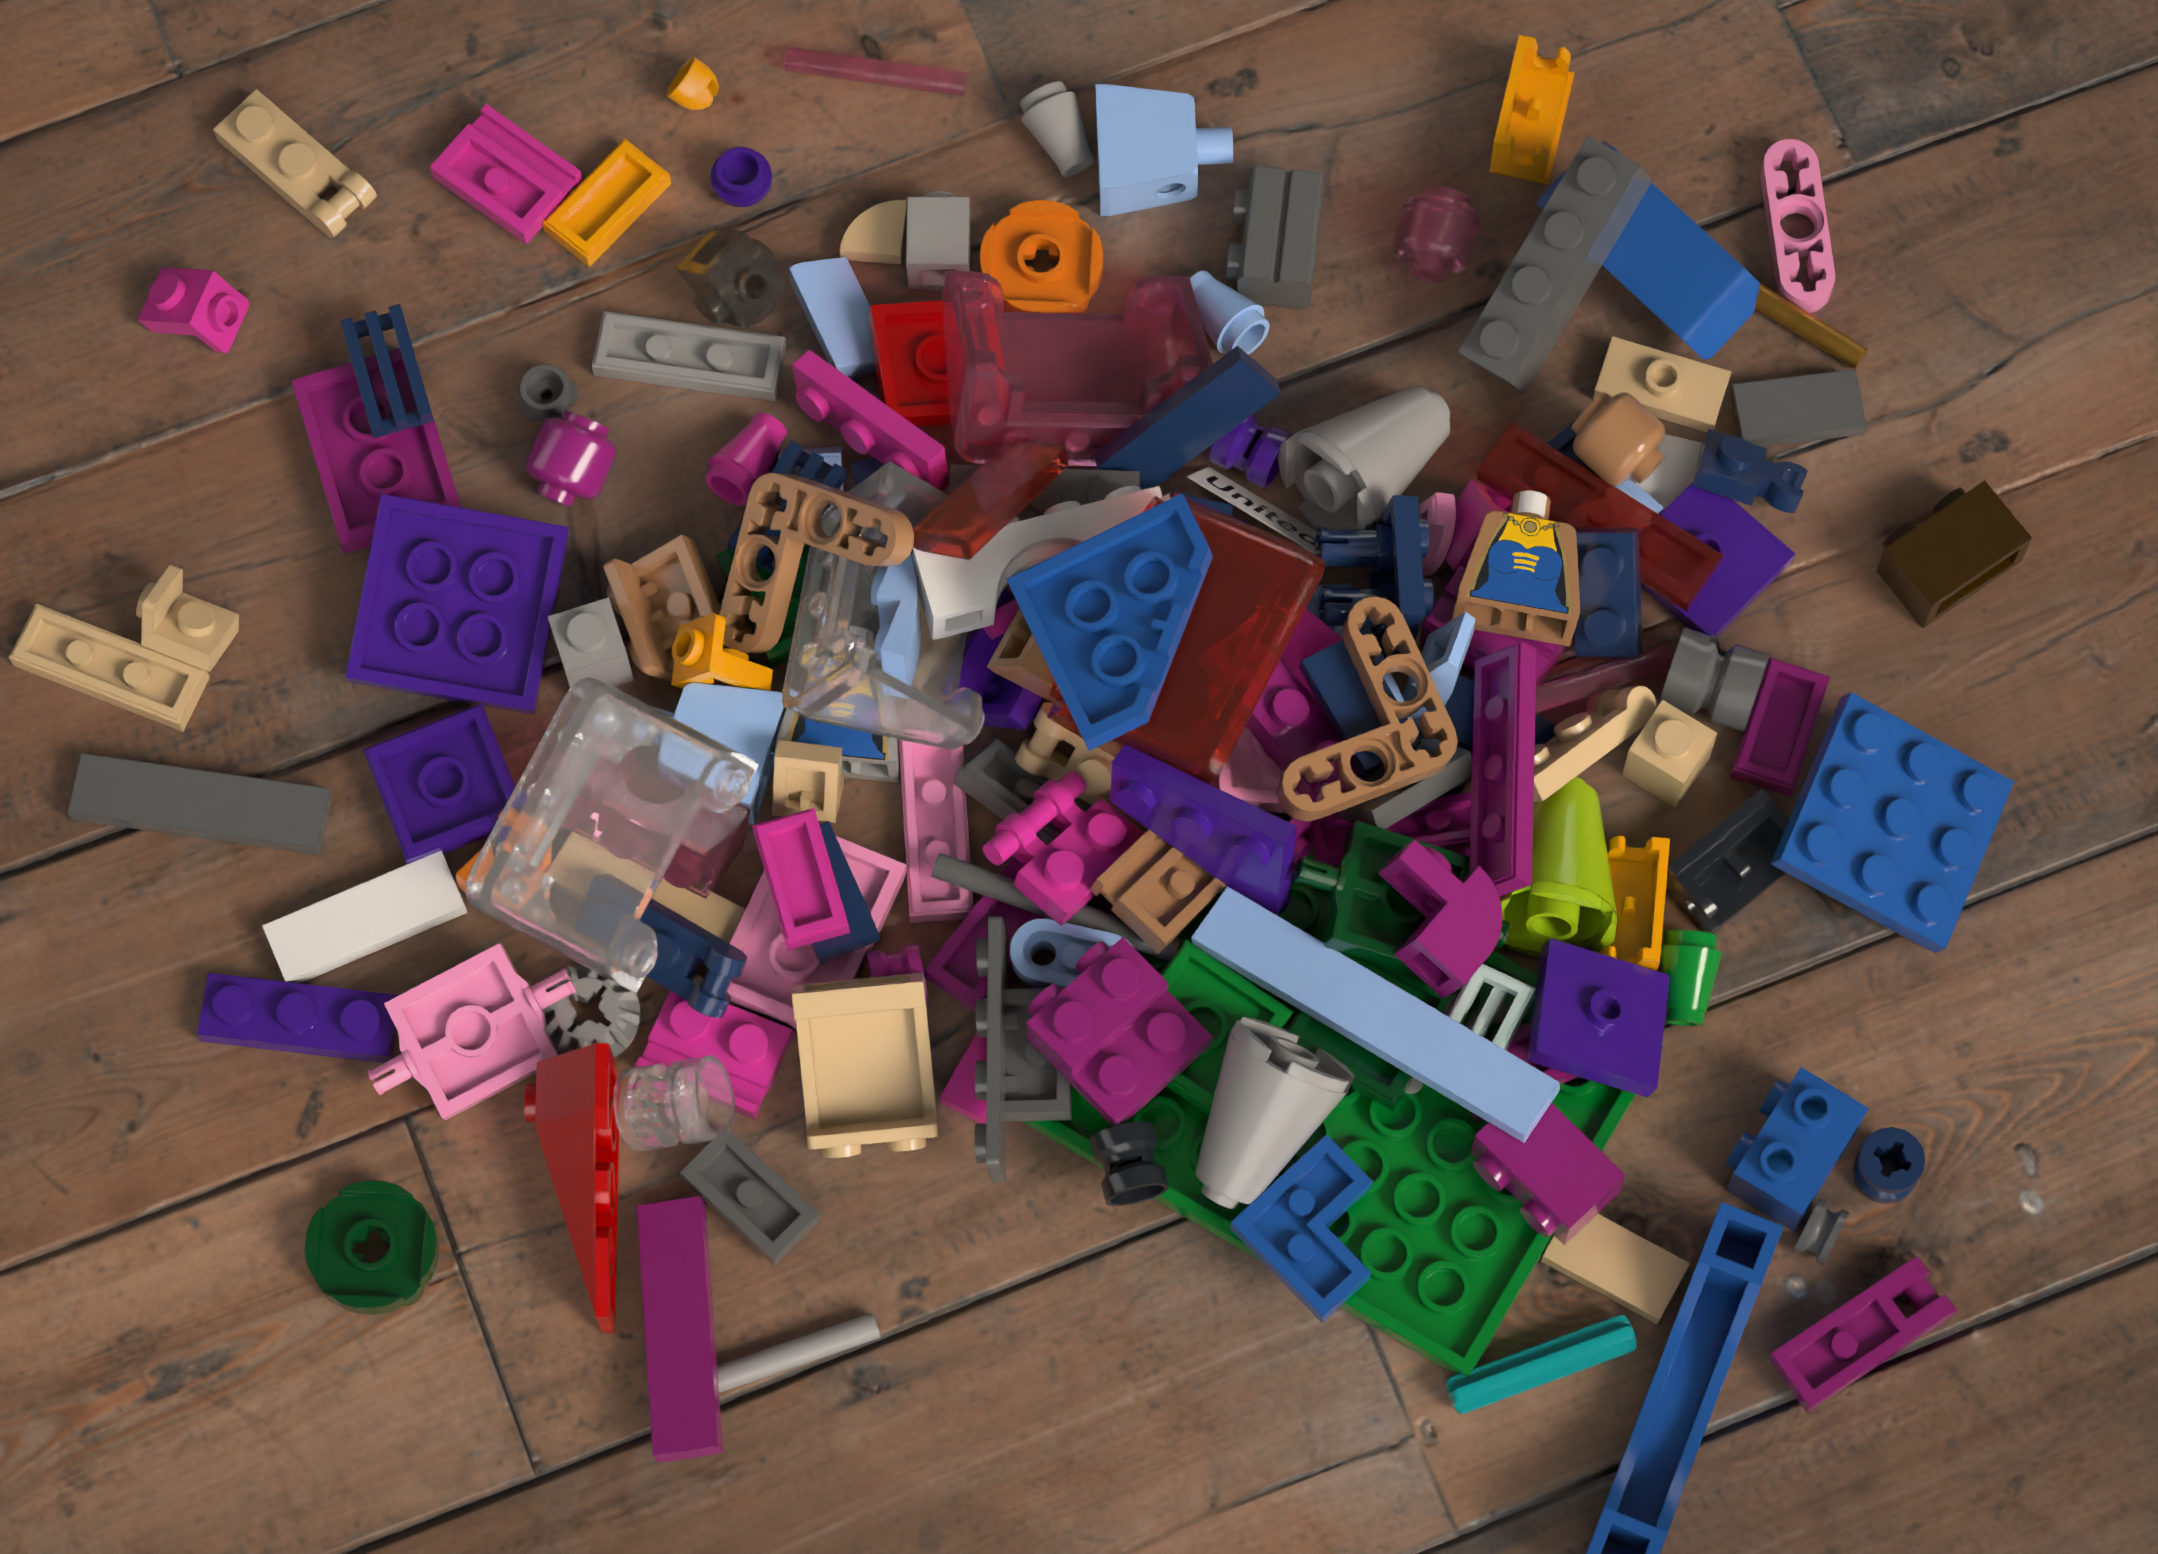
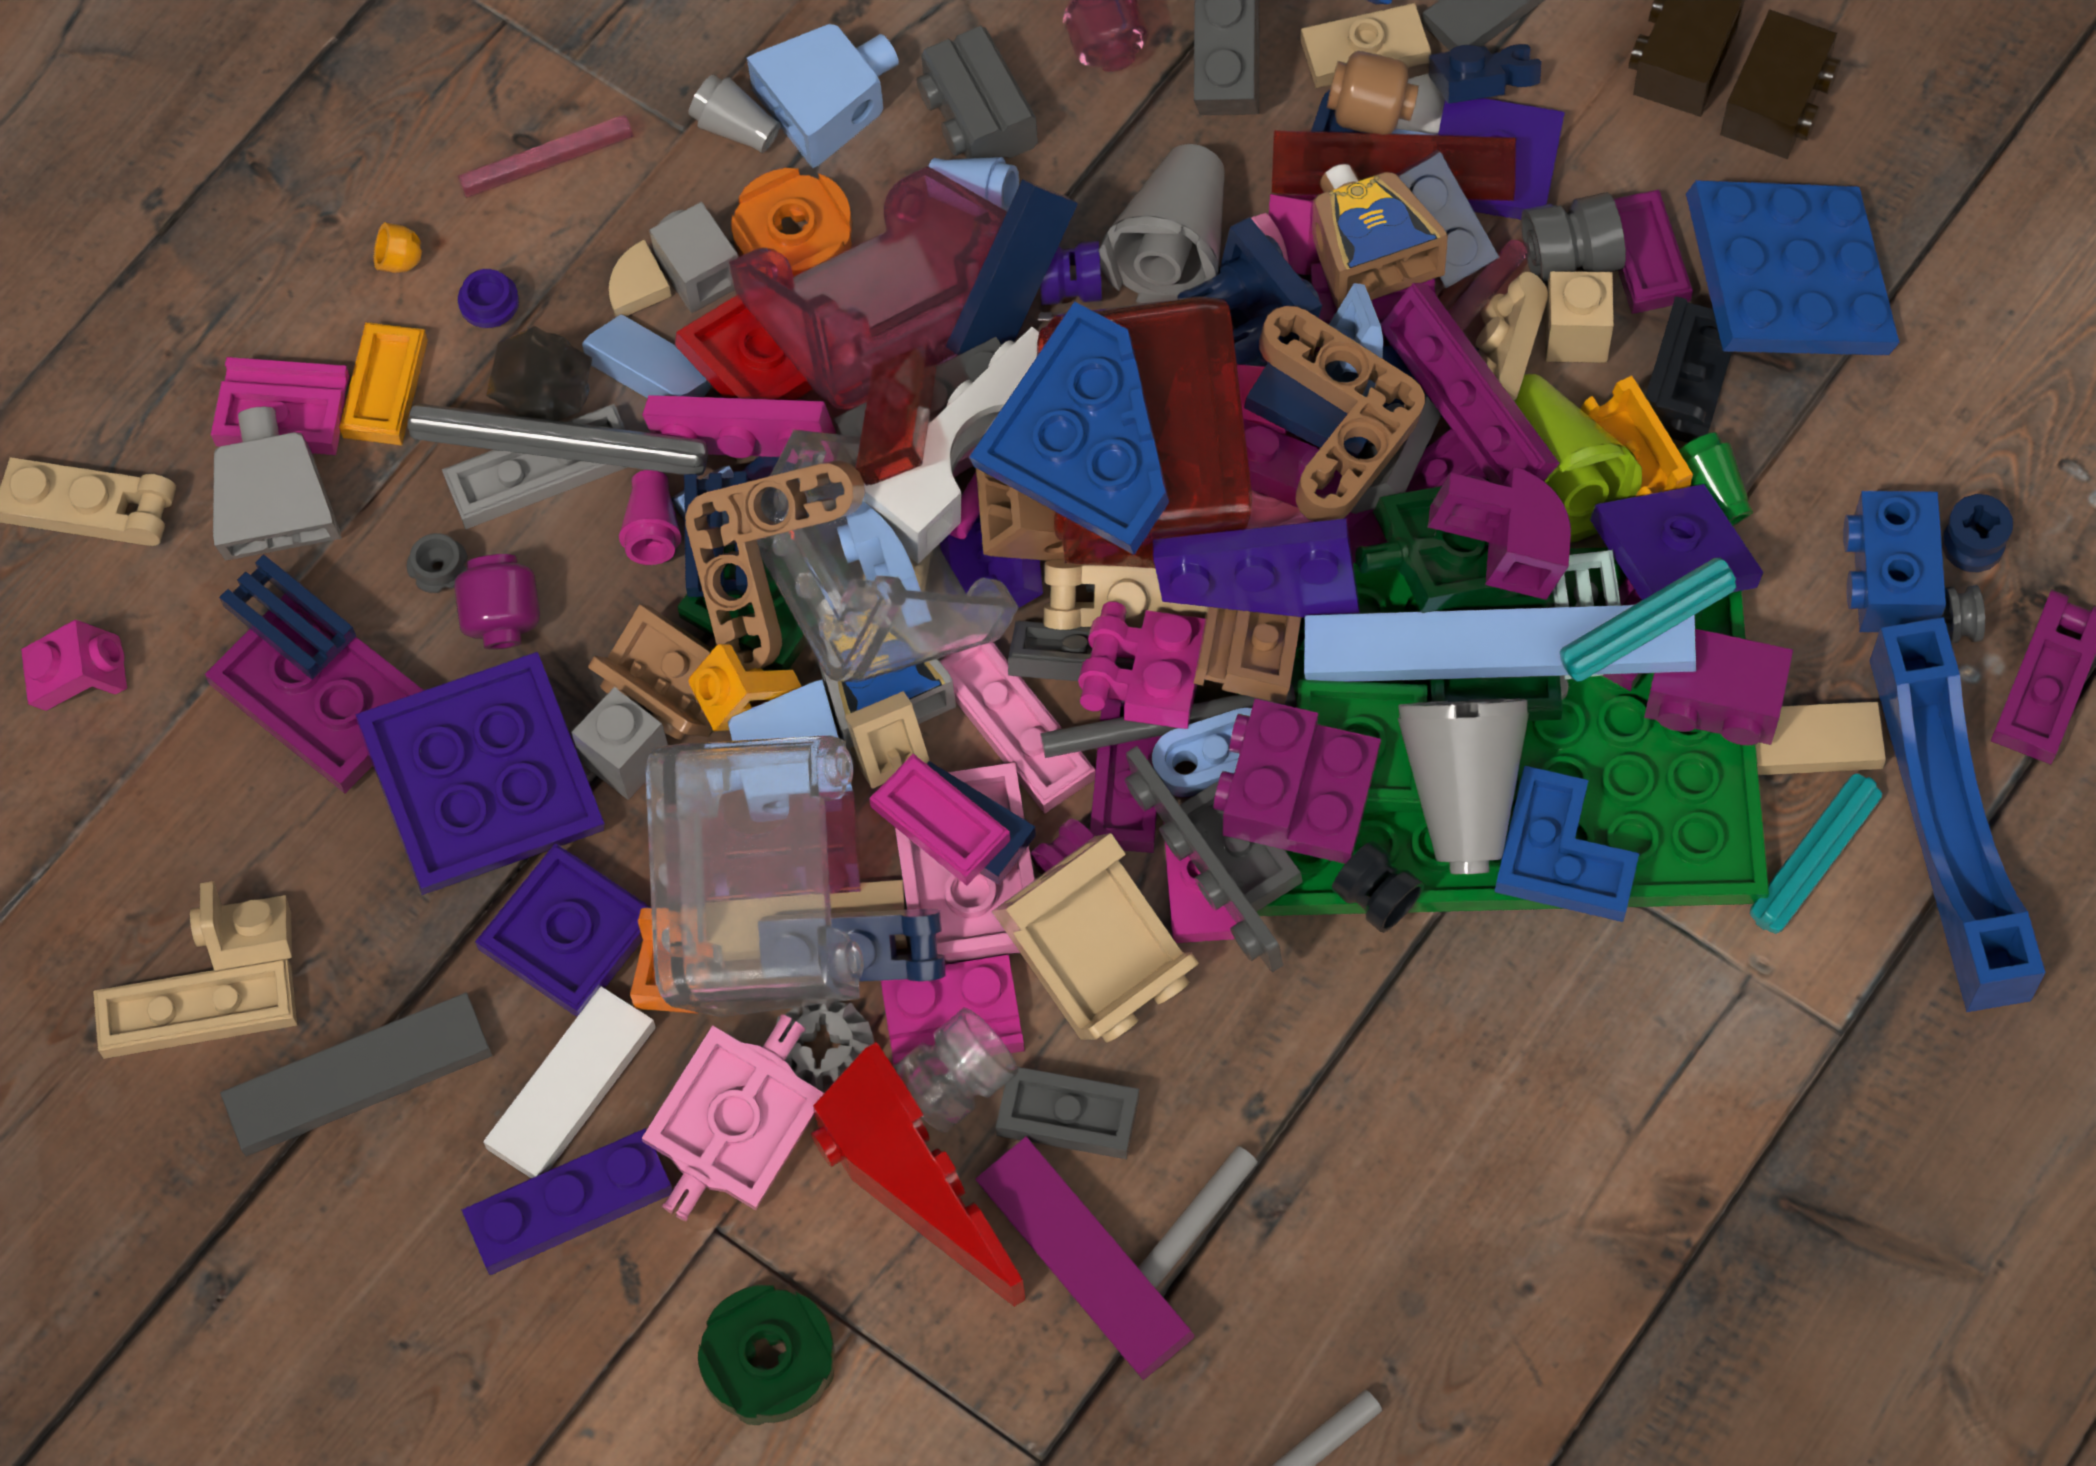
camera: 30 degrees left, 5 degrees down
(444, 247) = (268, 491): none -> light grey torso
(712, 344) = (558, 439): none -> dark grey axle
(1505, 1072) = (1647, 619): none -> teal axle
(2008, 643) = (1779, 83): none -> dark brown piece

